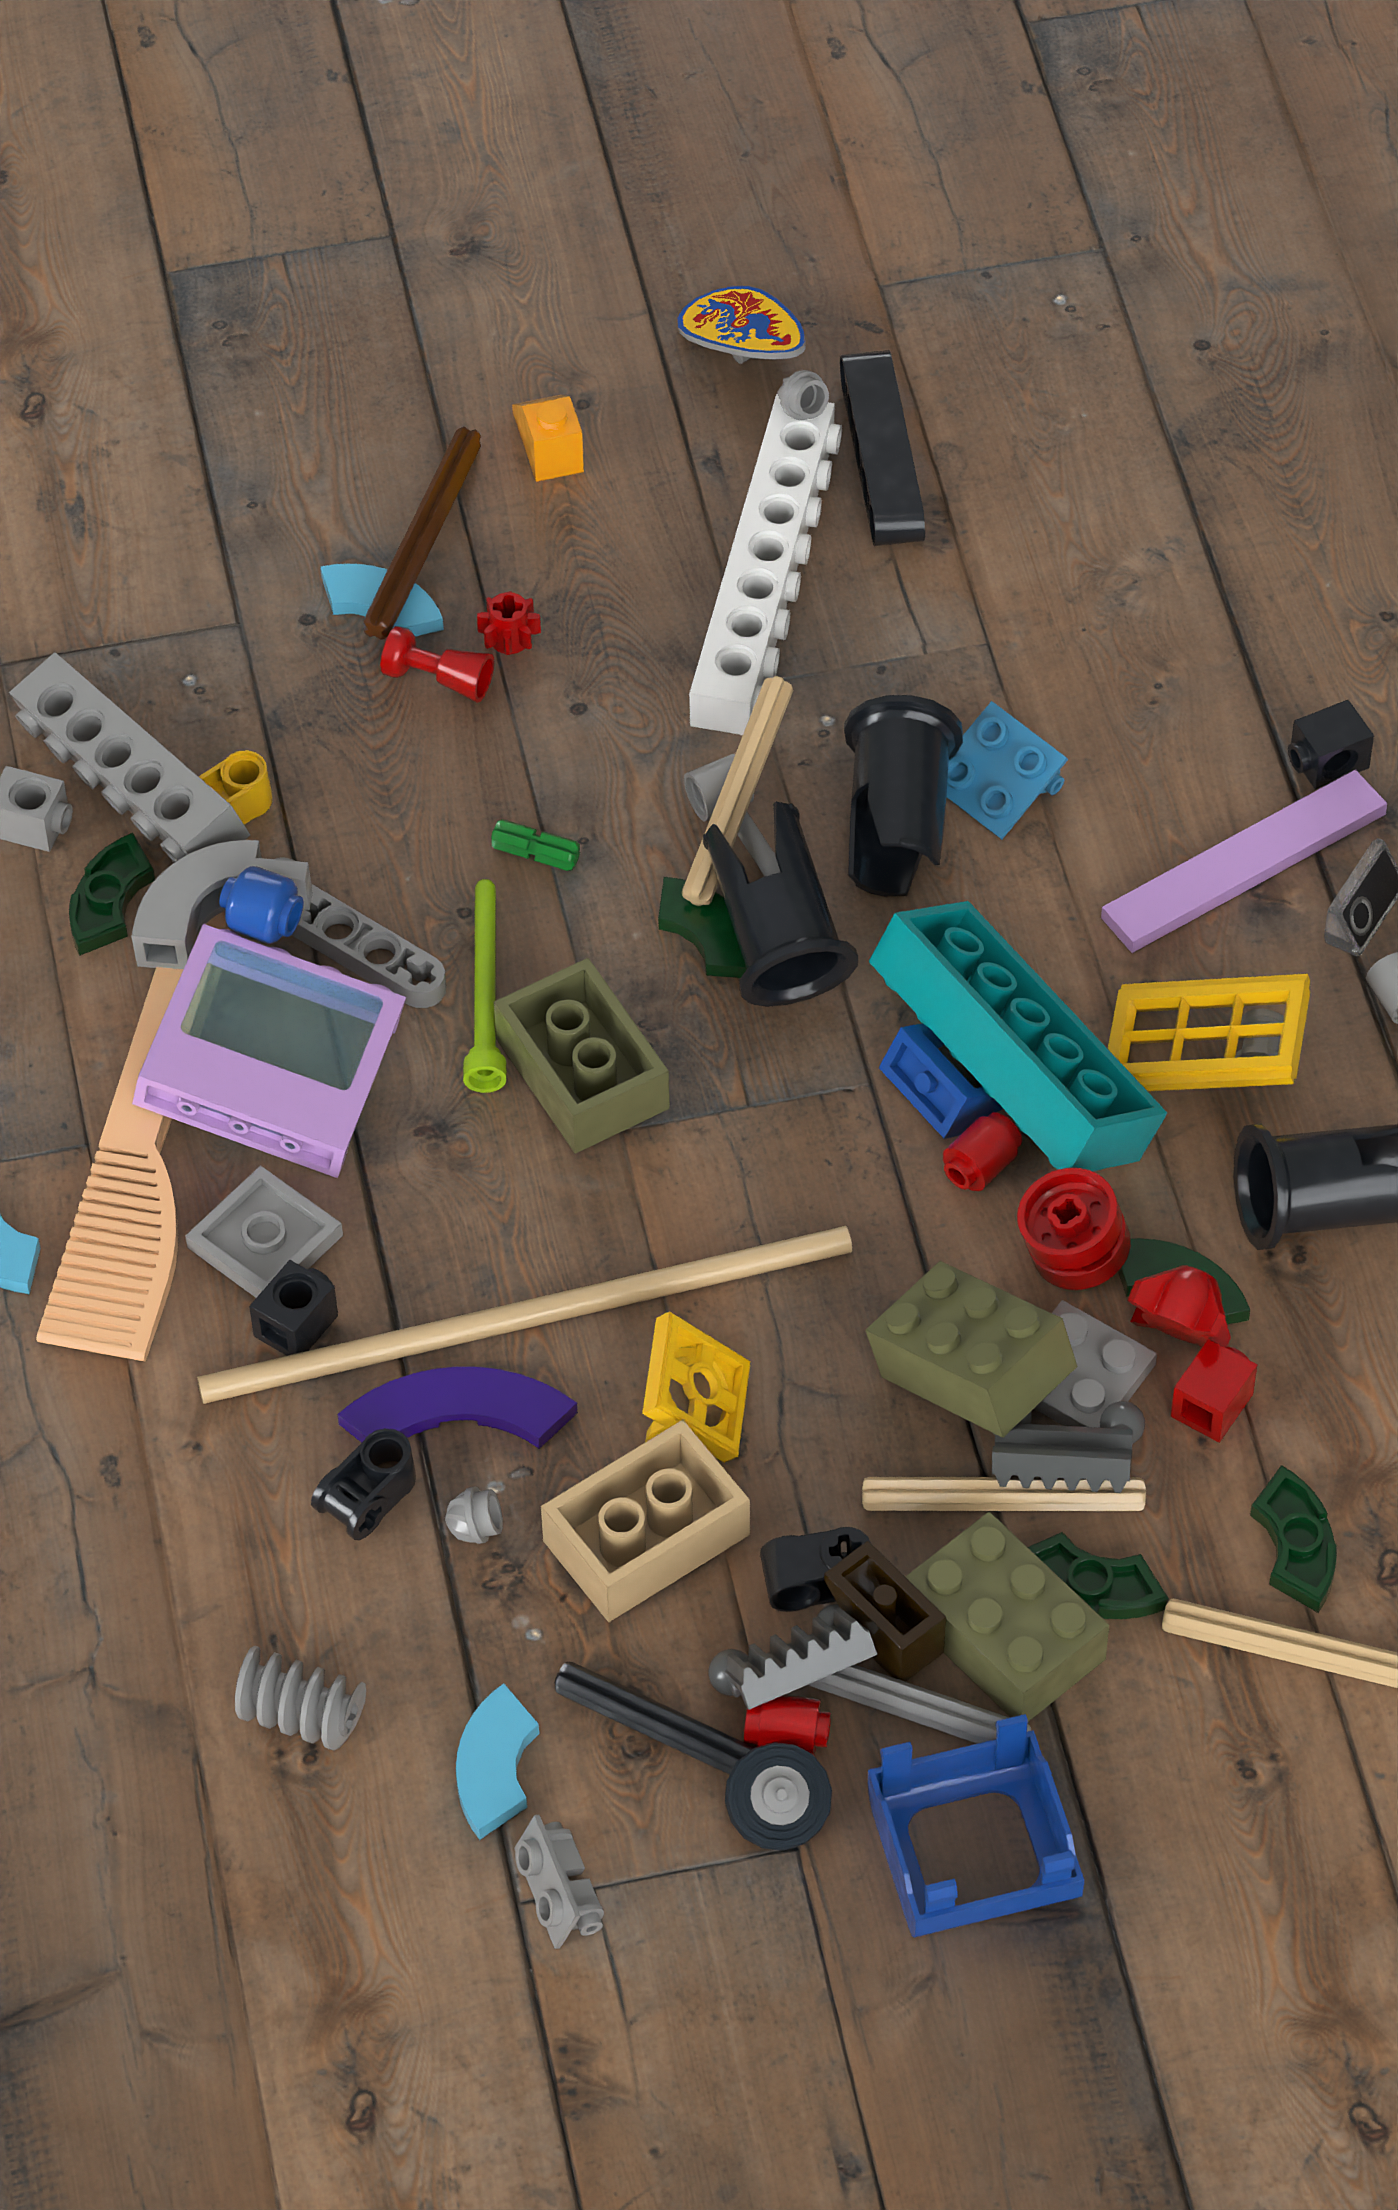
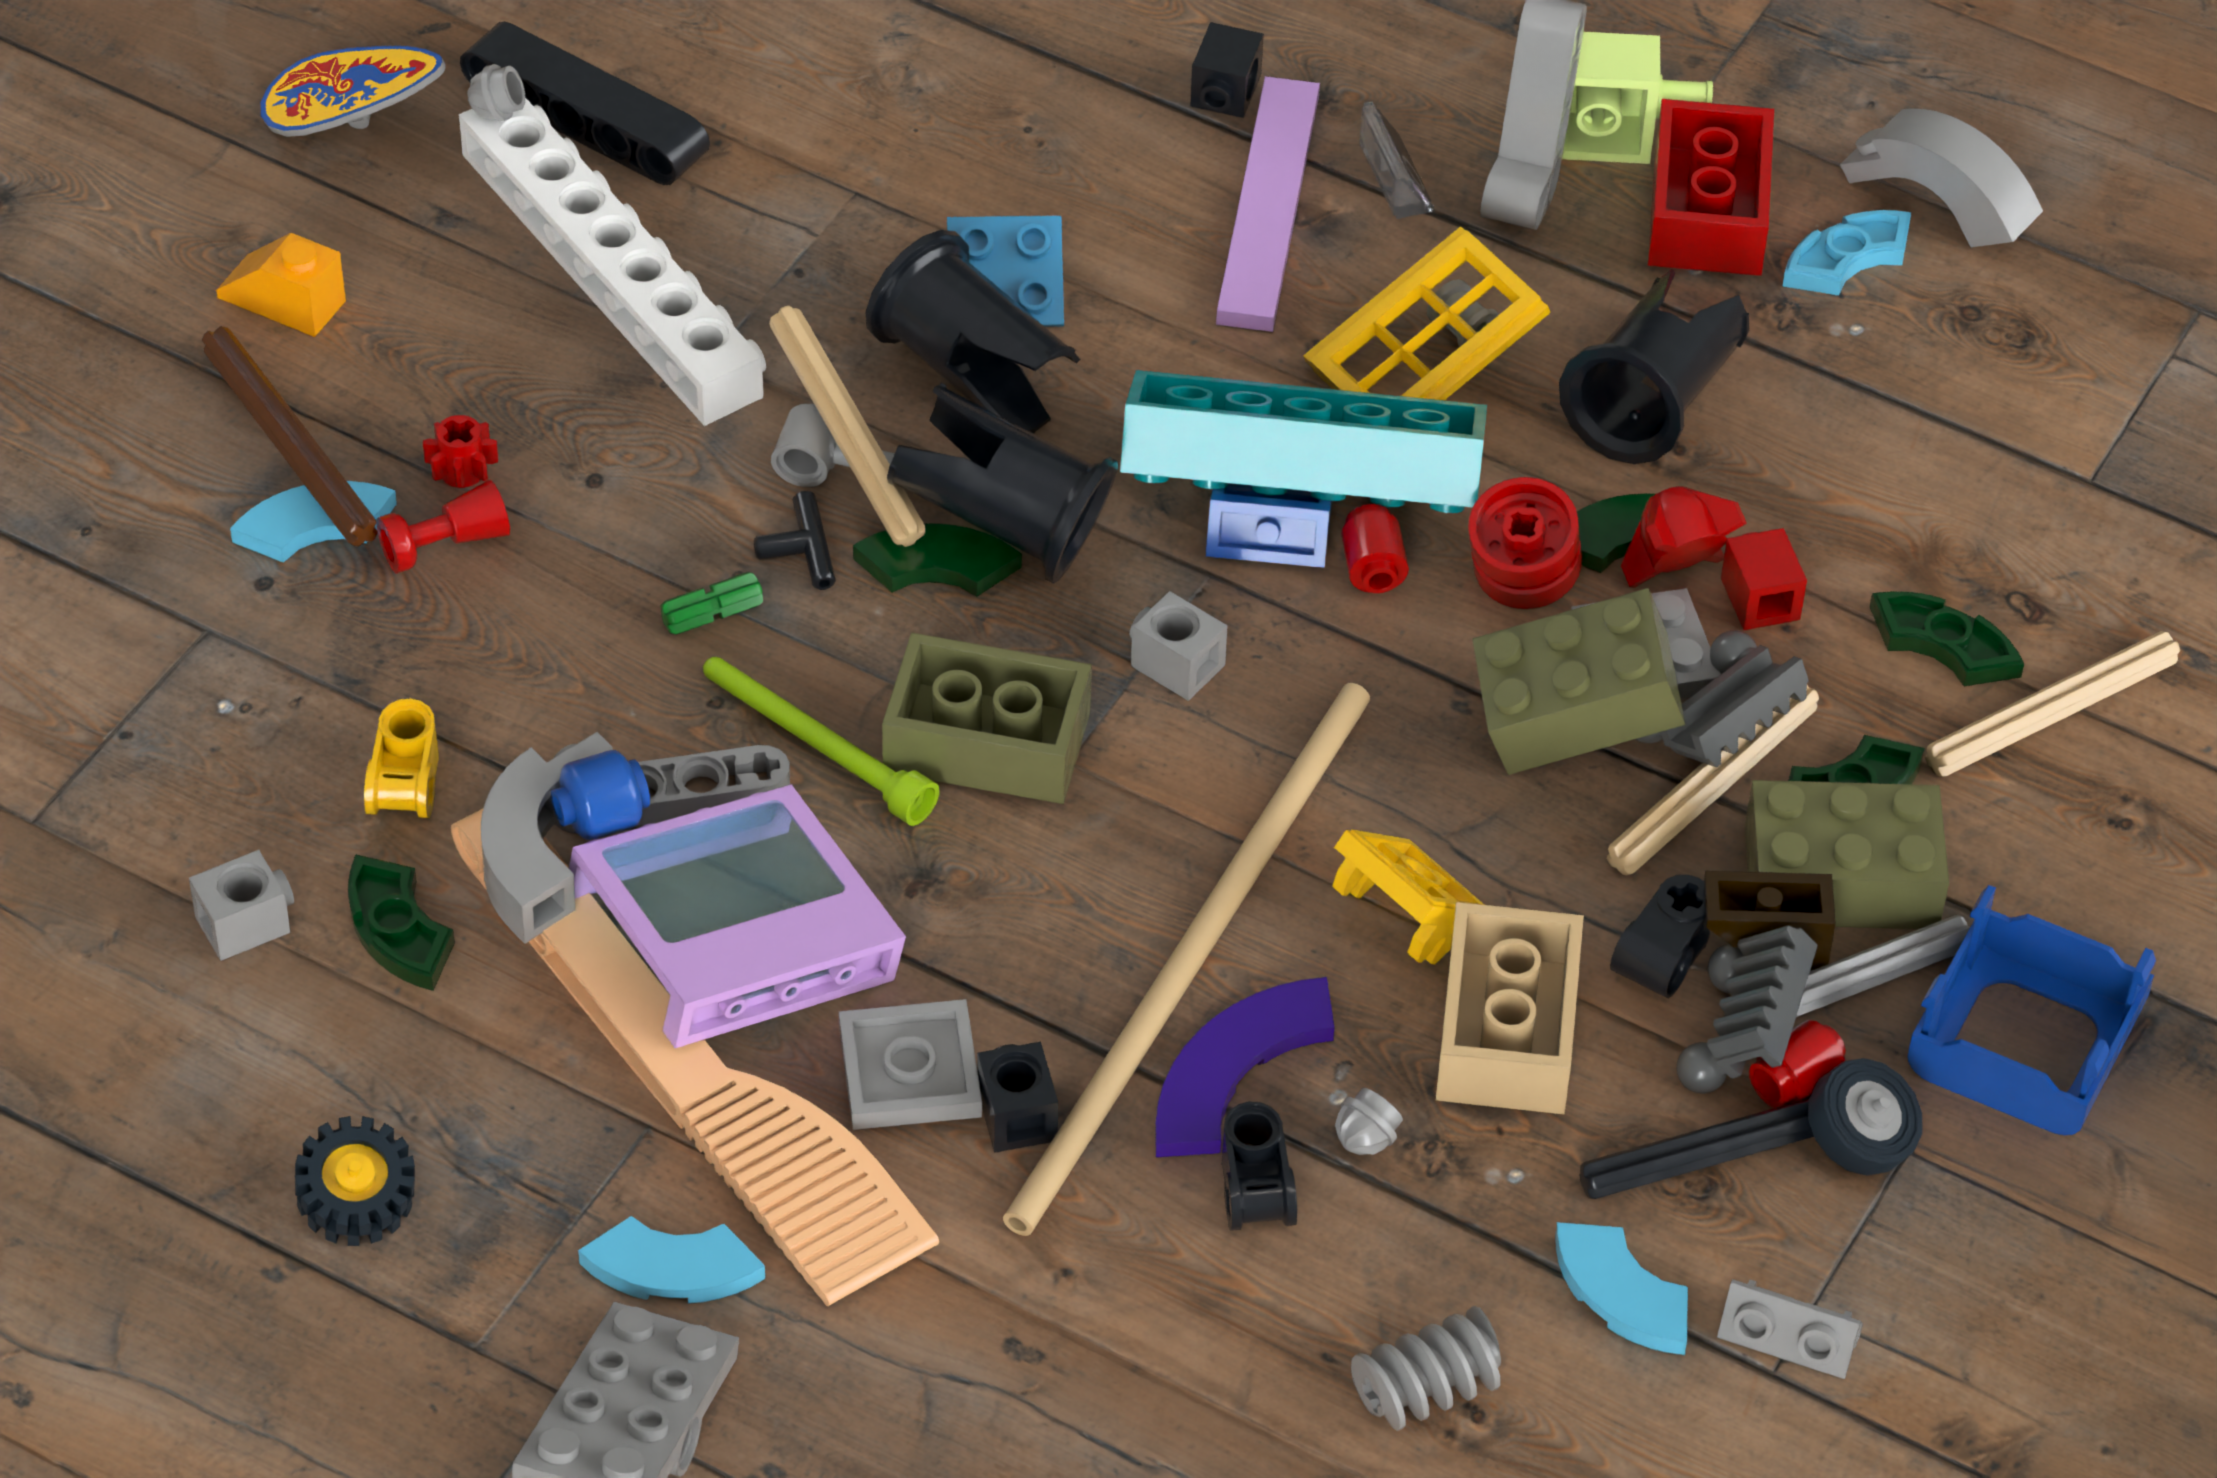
camera: 50 degrees left, 5 degrees down
(124, 760) = (273, 774): light grey brick -> none
(646, 852) = (808, 540): none -> black piece
(774, 1127) = (1178, 645): none -> light grey brick

